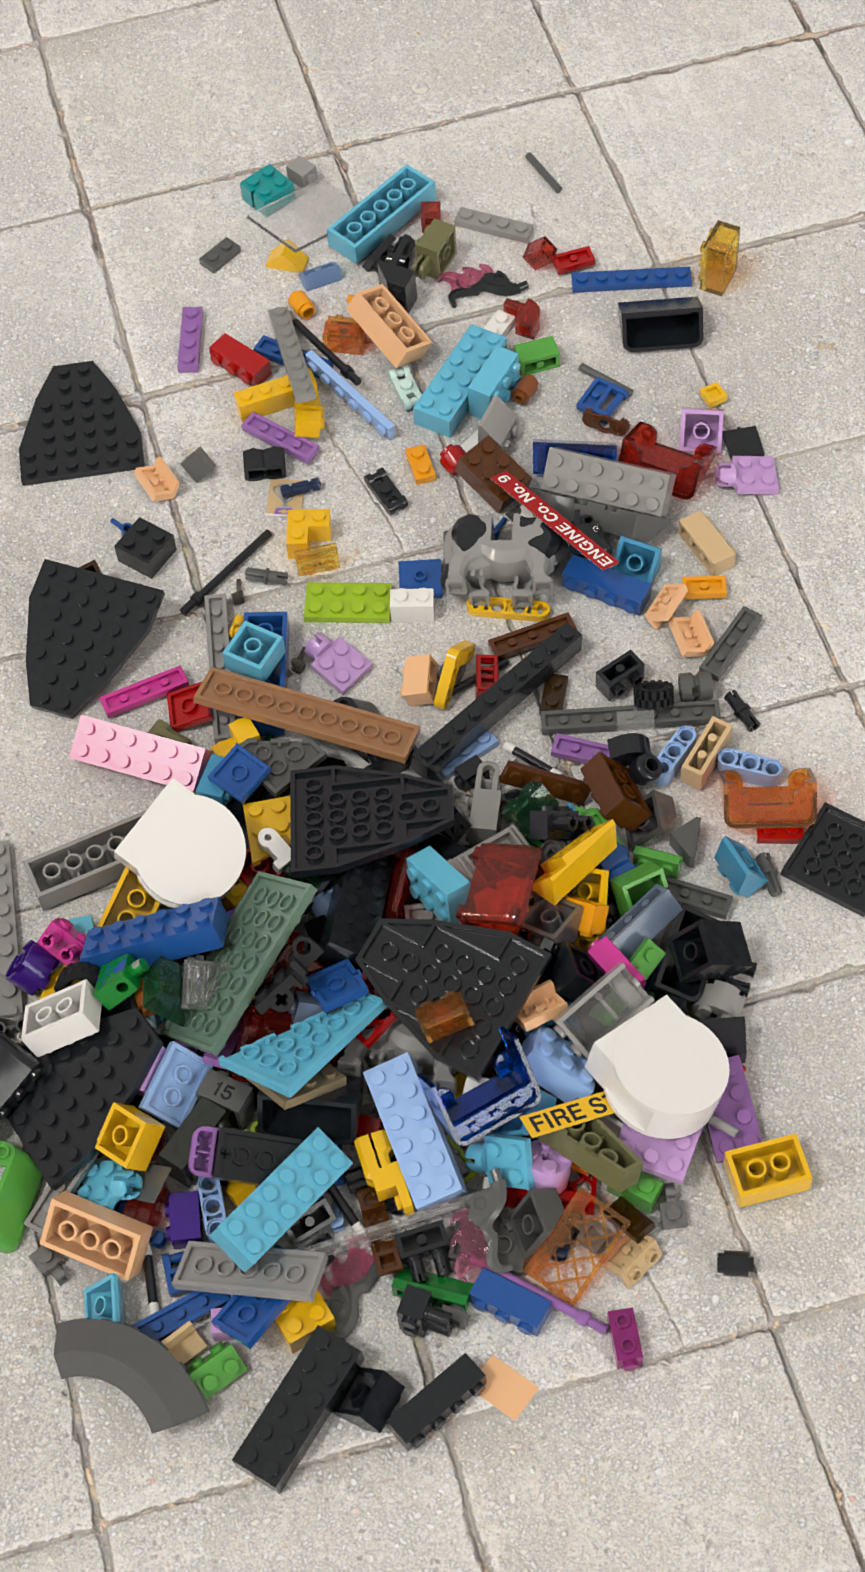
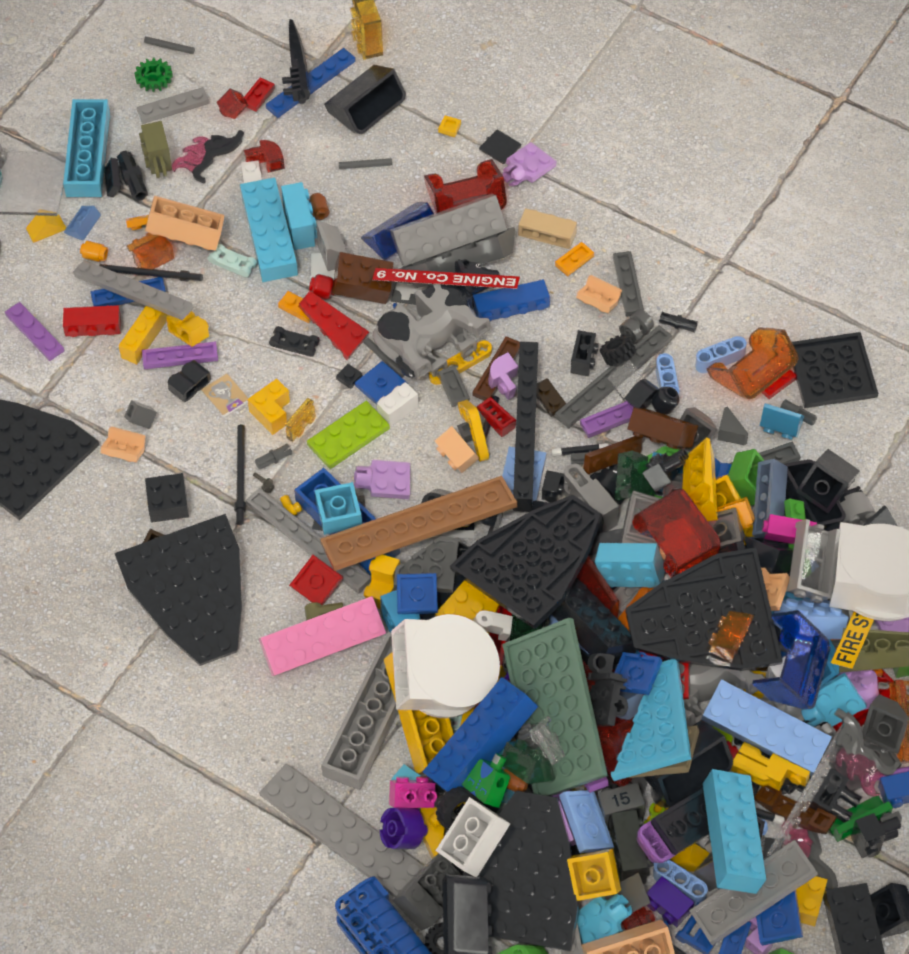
camera: 45 degrees left, 0 degrees up
(123, 527) = (136, 500): blue hand -> none
(143, 691) = (272, 595): dark pink plate -> none
(300, 487) = (231, 380): dark blue axle -> none
(354, 399) = (205, 291): light blue plate -> none
(399, 282) = (152, 185): black slope -> none
(400, 552) = (349, 376): none -> black plate
(429, 211) = (123, 127): clear red brick -> none
(432, 504) = (339, 328): none -> red wing
(477, 622) = (453, 385): none -> dark grey plate
(502, 188) = (153, 74): none -> green gear
(523, 639) = (501, 373): none -> lavender brick
(537, 355) = (304, 171): bright green brick -> none
(598, 394) = (372, 179): blue plate -> none
(616, 427) = (388, 196): reddish brown piece -> none
(617, 265) = (298, 72): none -> black piece
(638, 559) = (517, 265): dark azure slope -> none
(665, 604) = (565, 285): light nougat bracket -> none
(669, 862) = (727, 452): bright green bracket -> none
(700, 427) = (465, 153): lavender slope -> none
(705, 752) = (687, 363): tan brick -> none

